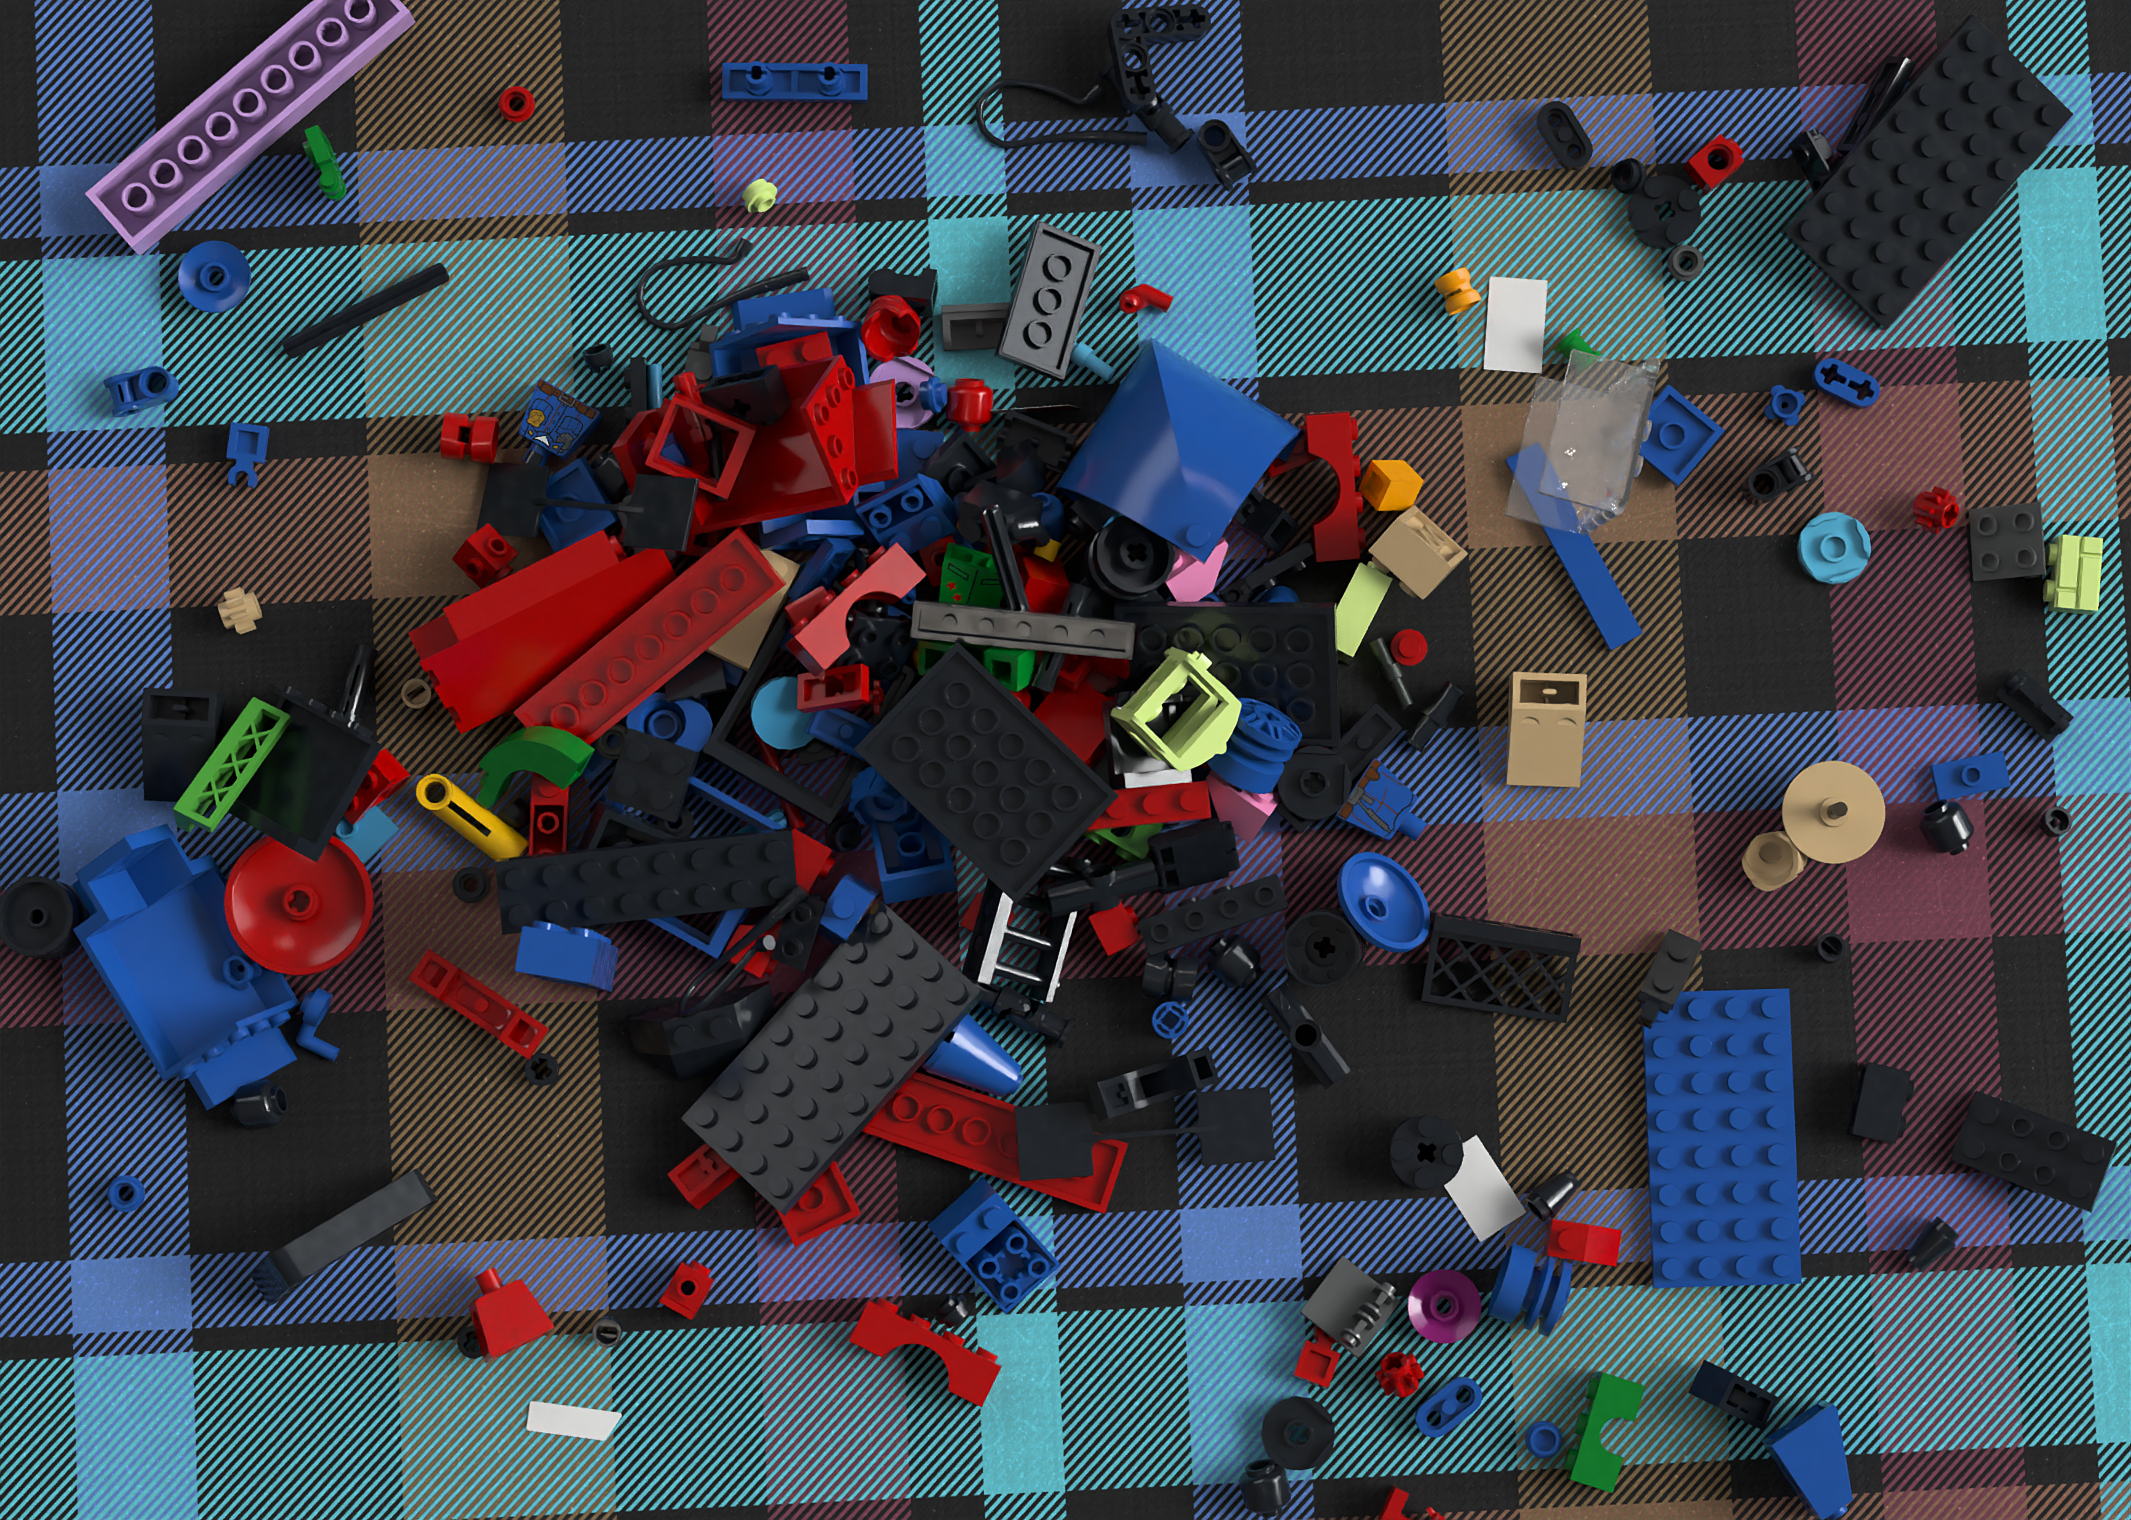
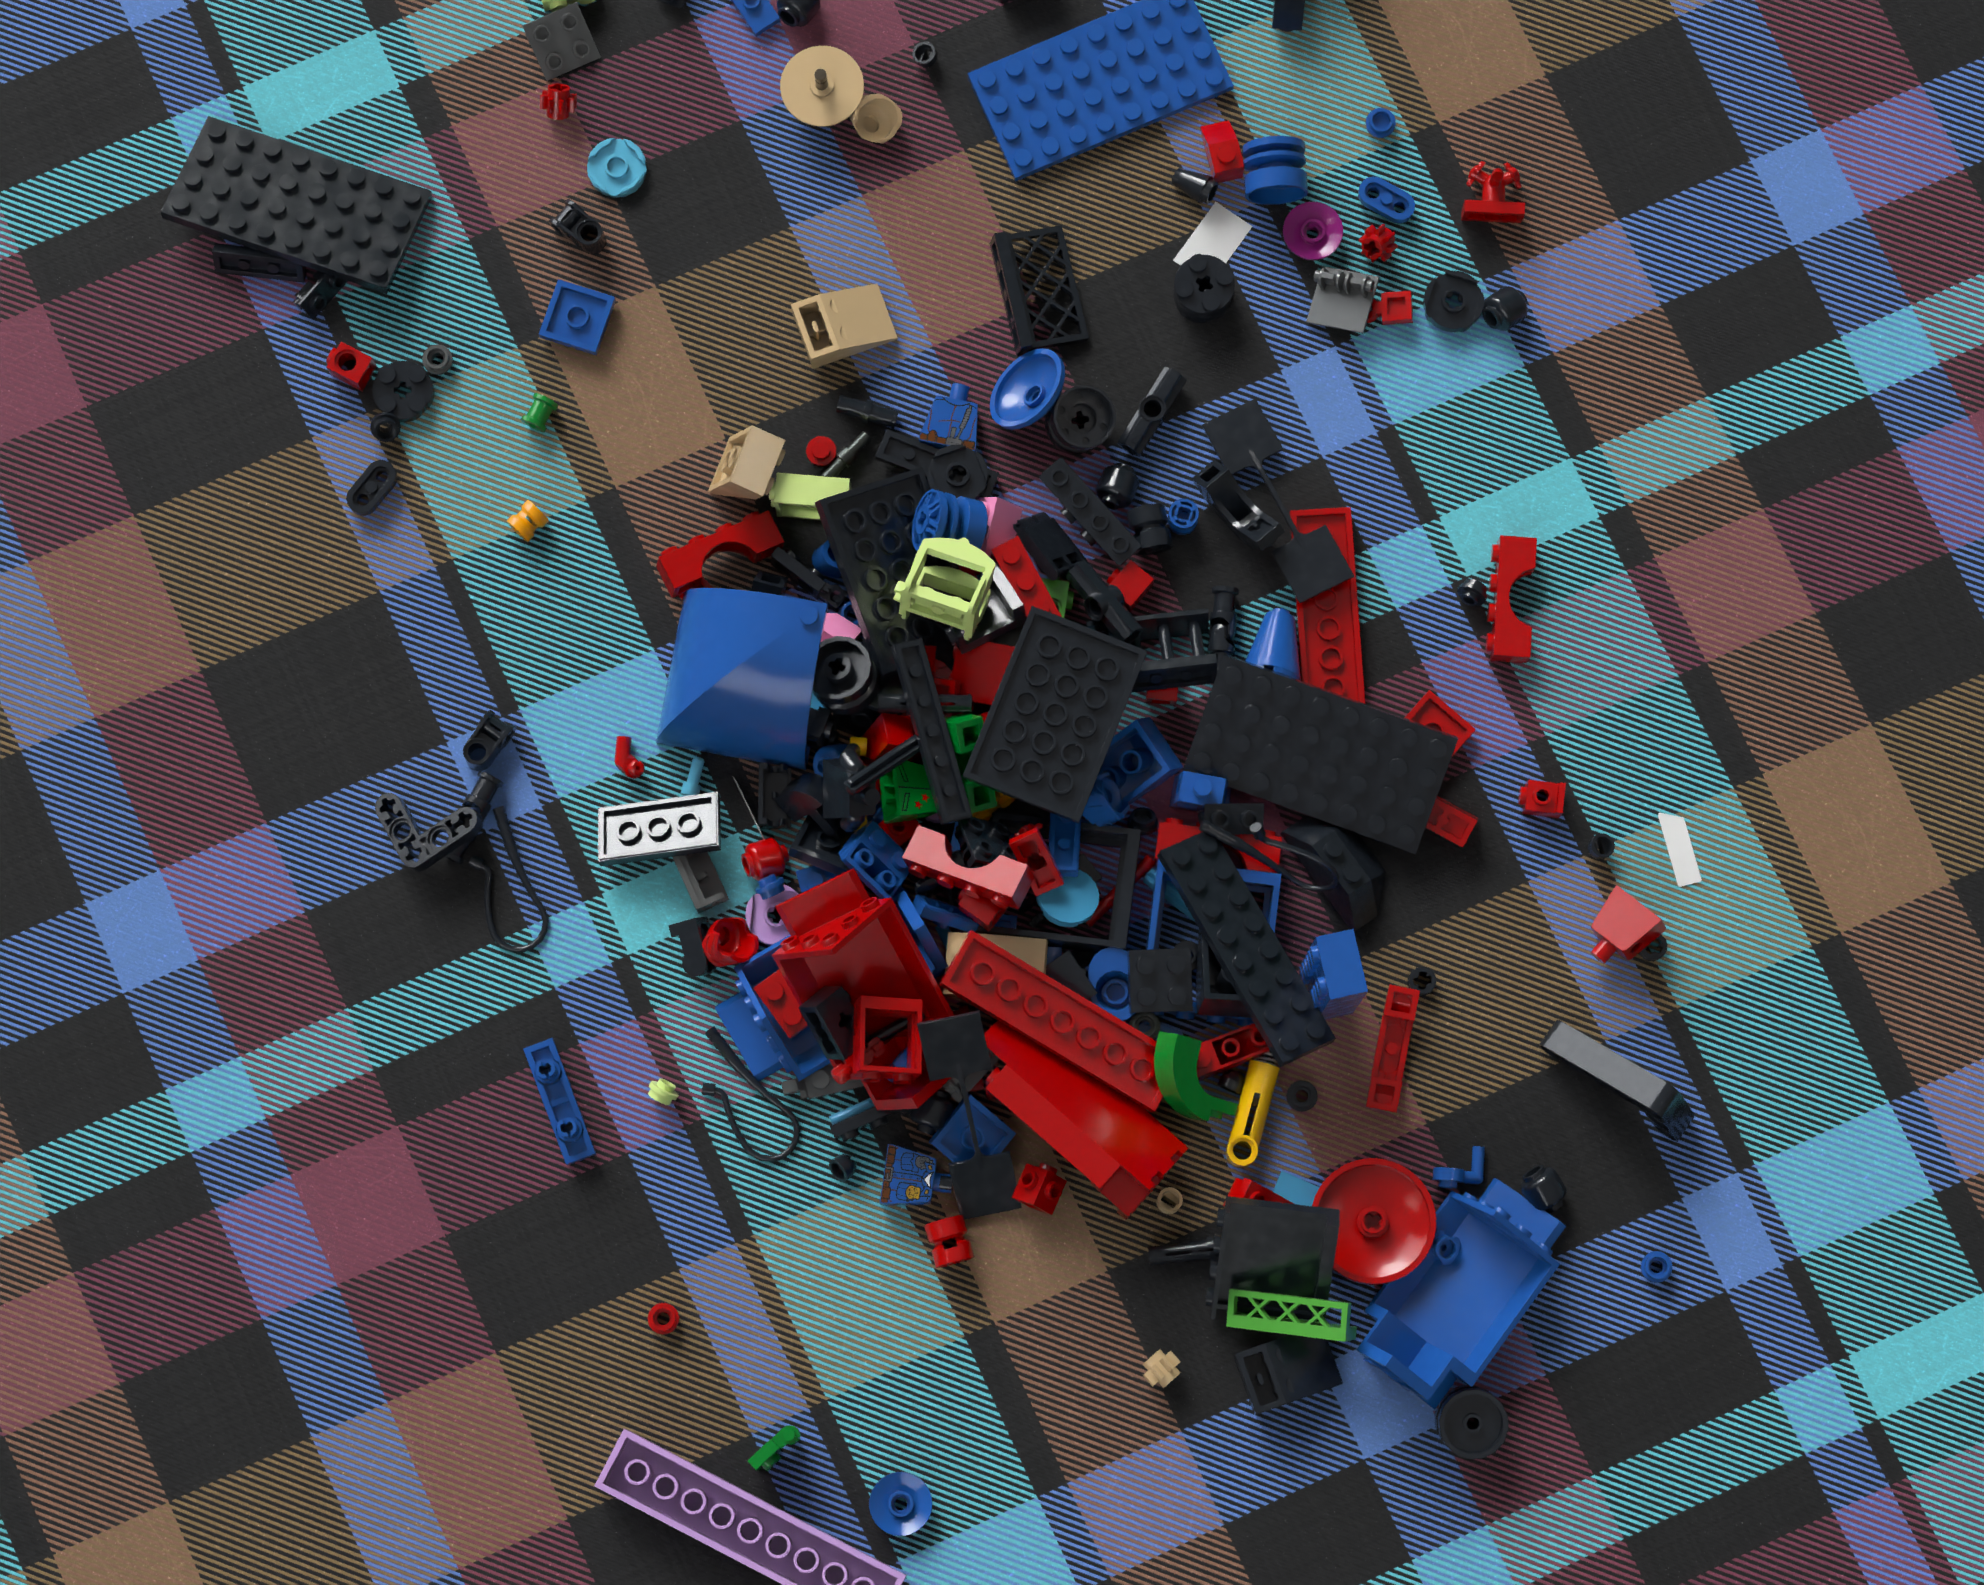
camera: 110 degrees left, 5 degrees down
(134, 392) = (1018, 1528): blue piece -> none
(246, 446) = (1027, 1419): blue plate -> none
(365, 310) = (879, 1371): black axle -> none
(993, 1245) = (1409, 582): blue slope -> none
(1390, 485) = (700, 512): light orange panel -> none
(1515, 324) = (535, 470): white sticker -> none
(1583, 444) = (615, 368): clear windscreen -> none
(1592, 582) = (692, 359): blue tile -> none
(1609, 1399) = (1331, 86): green arch -> none
(1667, 976) = (995, 162): black hinge -> none
(1794, 401) = (514, 238): blue plate -> none
(1850, 376) = (491, 206): blue beam -> none

